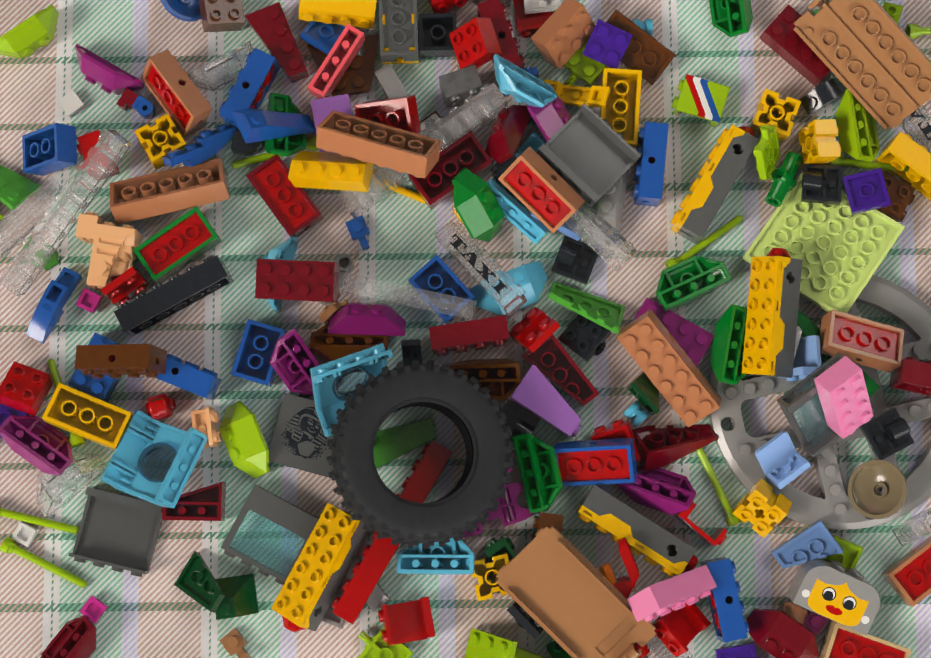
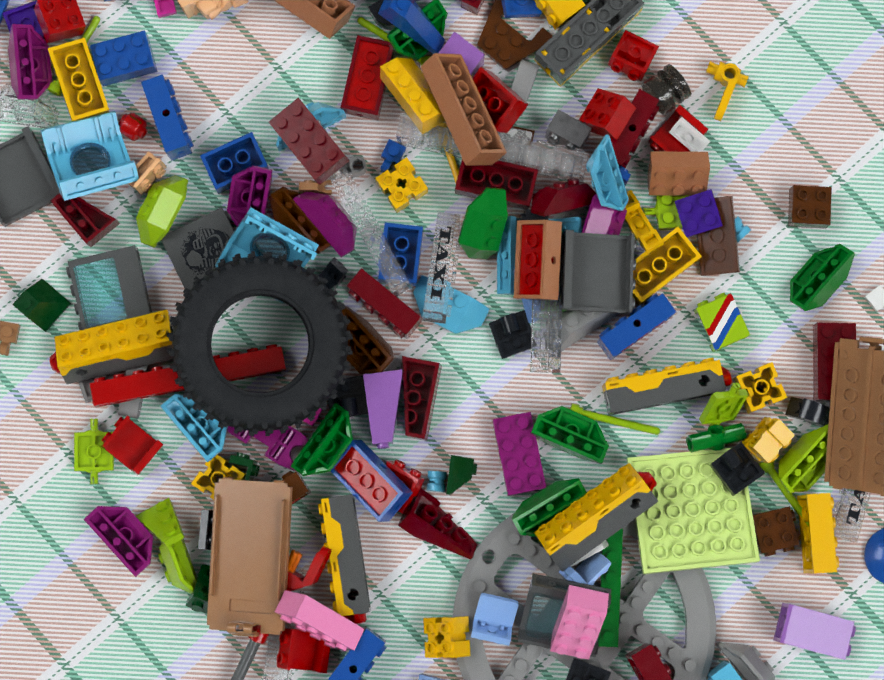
camera: 50 degrees right, 0 degrees up
(121, 360) = (137, 67): reddish brown brick -> none
(125, 287) = (197, 22): red plate -> none
(173, 296) = (222, 63): black brick -> none
(177, 245) = (262, 32): brick -> none
(200, 584) = (28, 269): dark green wing -> none
(336, 62) = (502, 25): coral brick -> none
(396, 252) = (400, 196): none -> yellow brick
(400, 440) = (258, 321): bright green wing -> none
(434, 34) = (591, 76): black brick -> none
(533, 329) = (430, 348): red plate -> none
(585, 337) = (461, 392): black plate -> none
(599, 310) = (487, 378): bright green wing -> none
(660, 490) = (392, 547): magenta wedge -> none
(669, 368) = (490, 474): nougat brick -> none
(717, 537) = (393, 623): red panel -> none
(730, 519) = (434, 591): lime piece -> none
(861, 340) = (638, 601): brick -> none
(866, 191) = (760, 507): dark purple plate -> none

